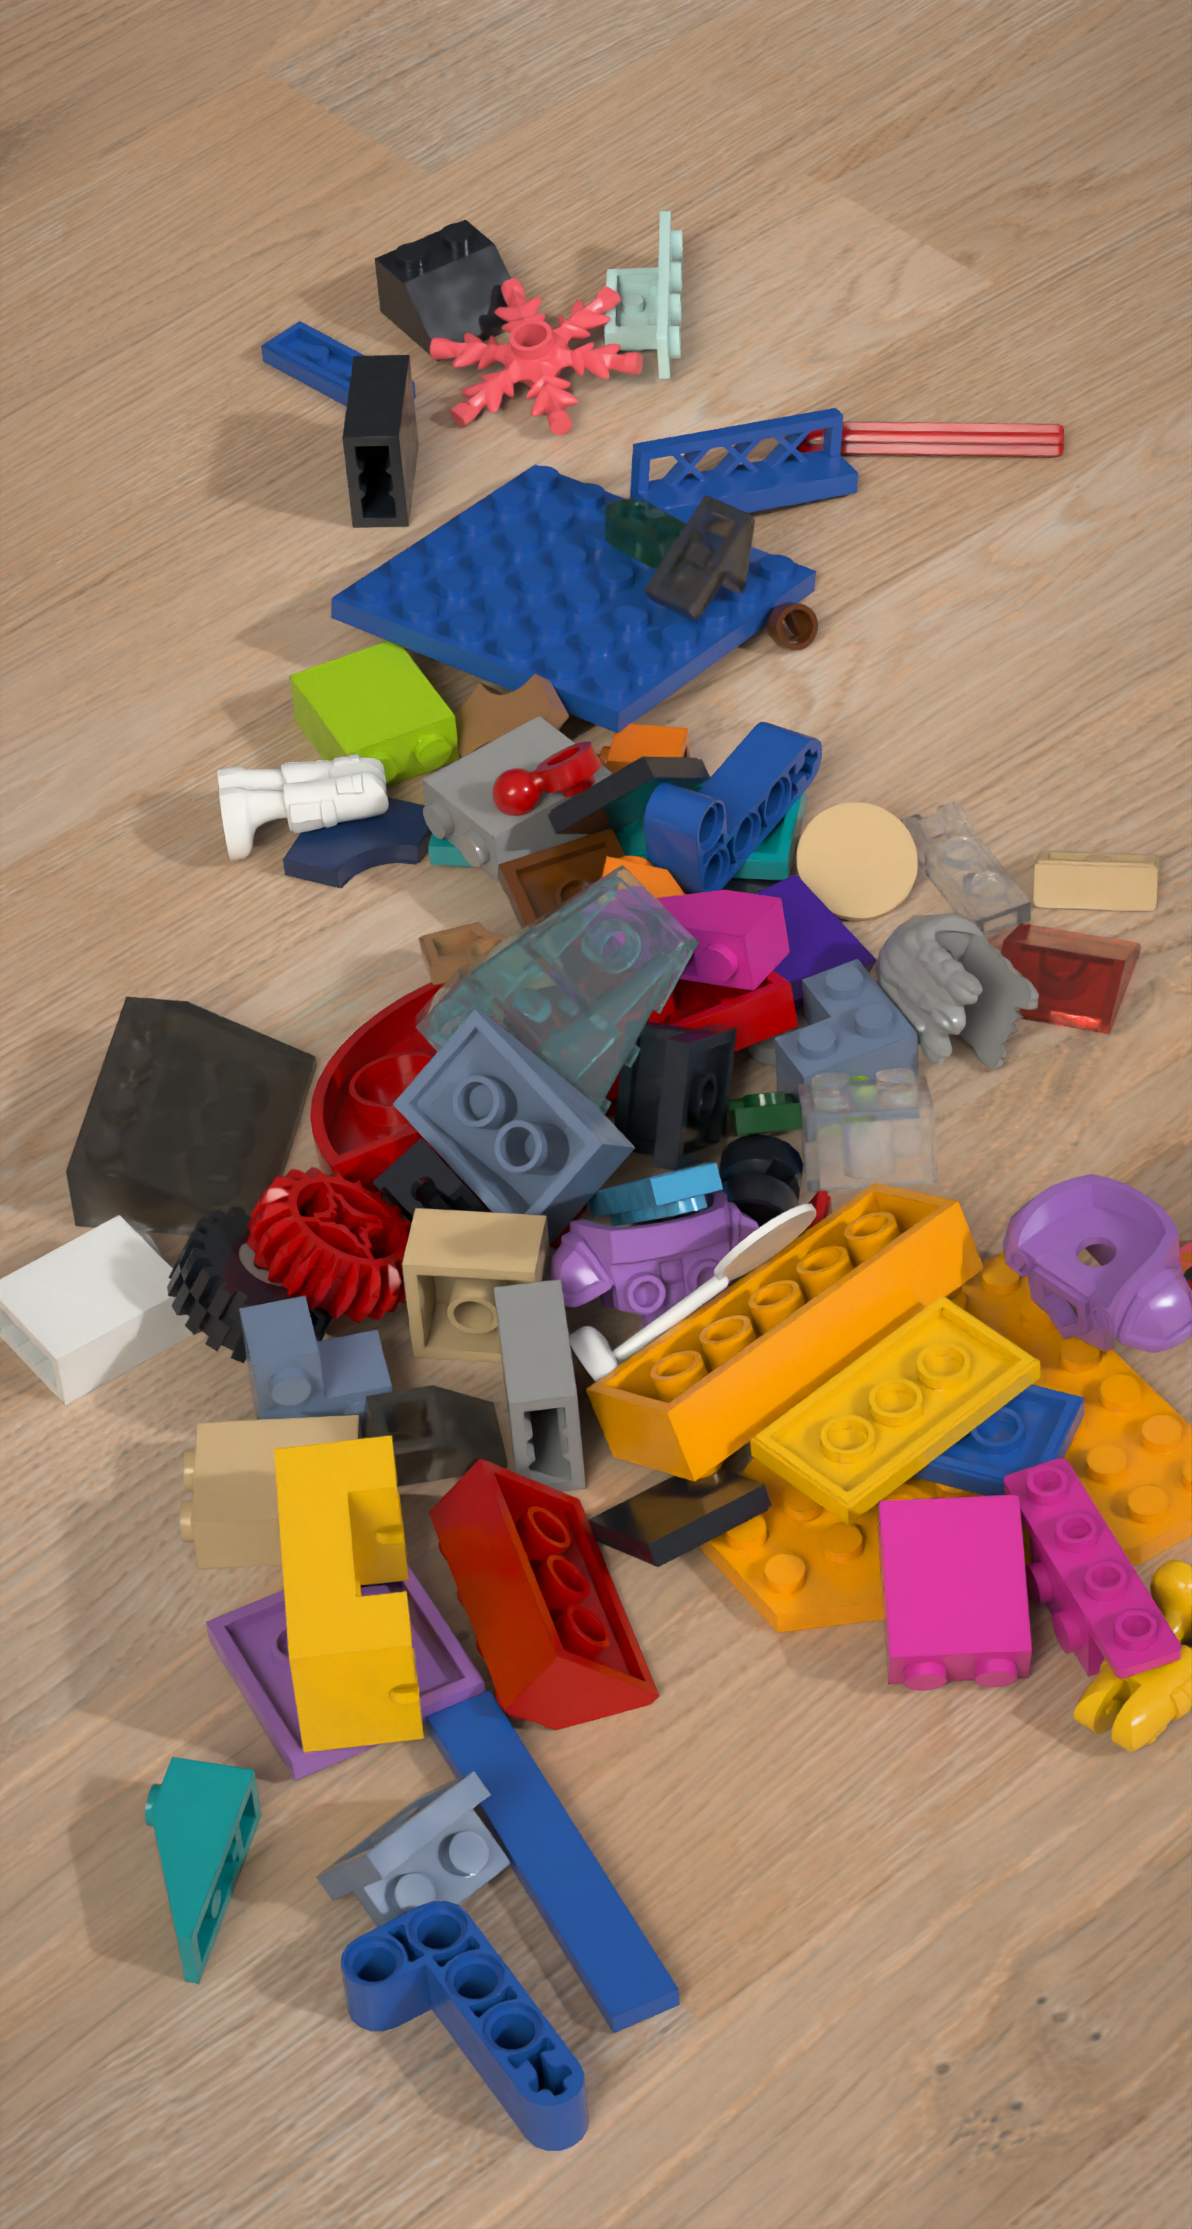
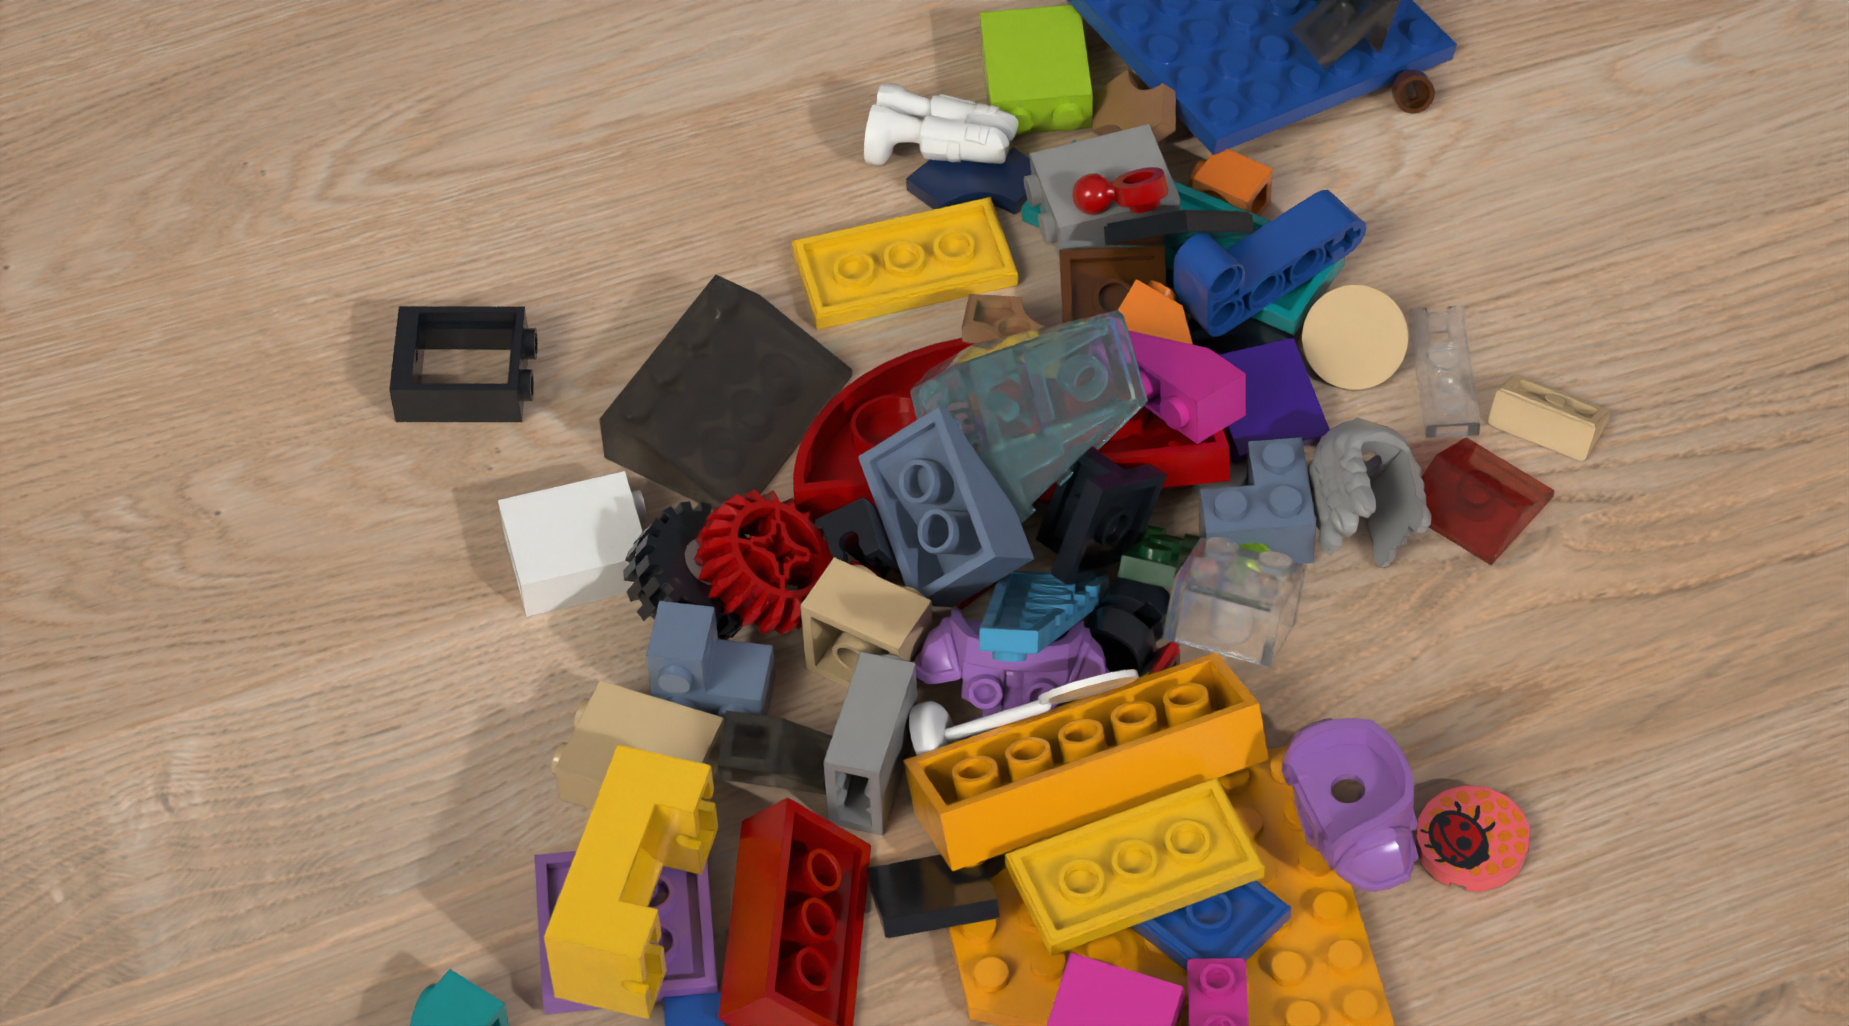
camera: 20 degrees right, 10 degrees up
(318, 942) = (904, 263): none -> yellow tile

